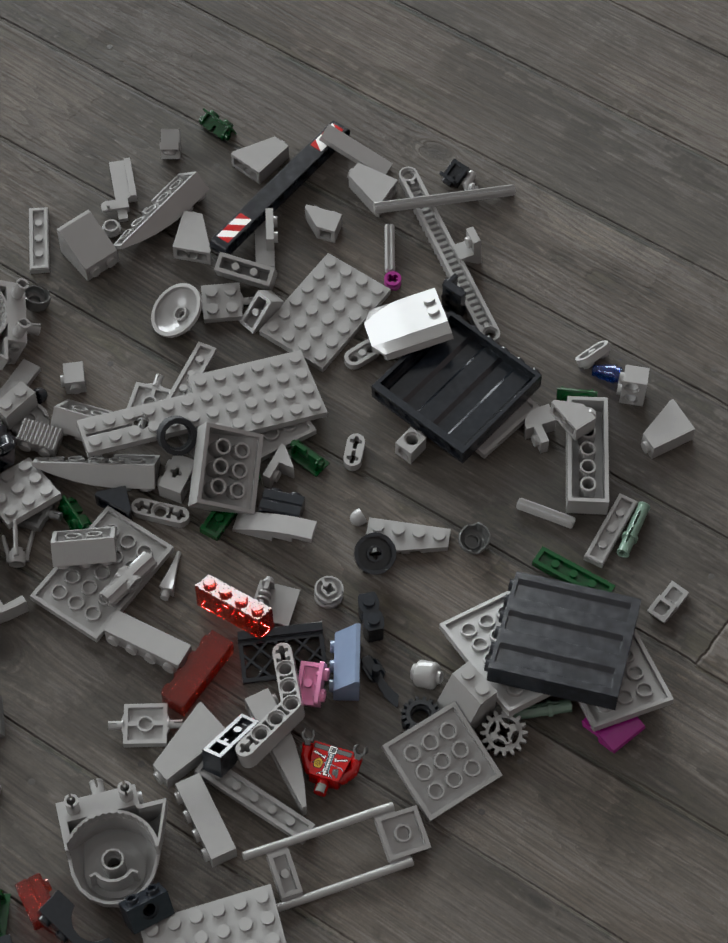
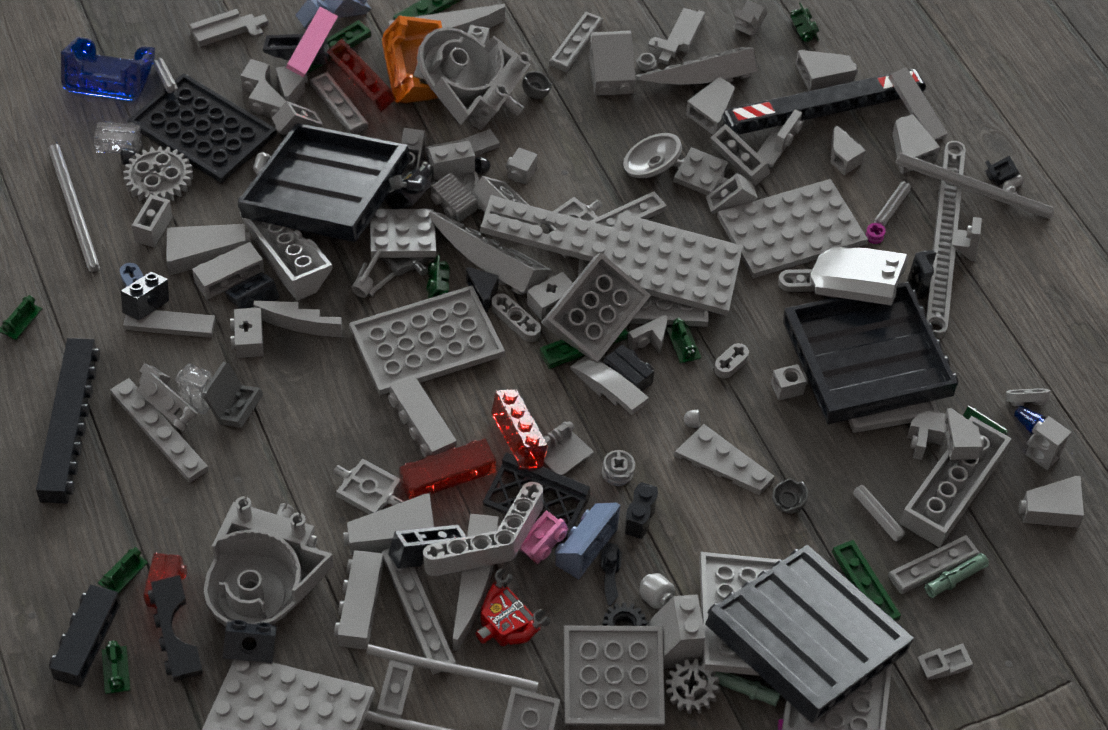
camera: 30 degrees right, 5 degrees down
(84, 547) = (423, 306): light grey slope -> none
(128, 579) = (442, 354): light grey piece -> none
(168, 583) = (480, 379): light grey piece -> none
(191, 441) = (569, 271): black tyre -> none
(383, 545) = (688, 467): black brick -> none

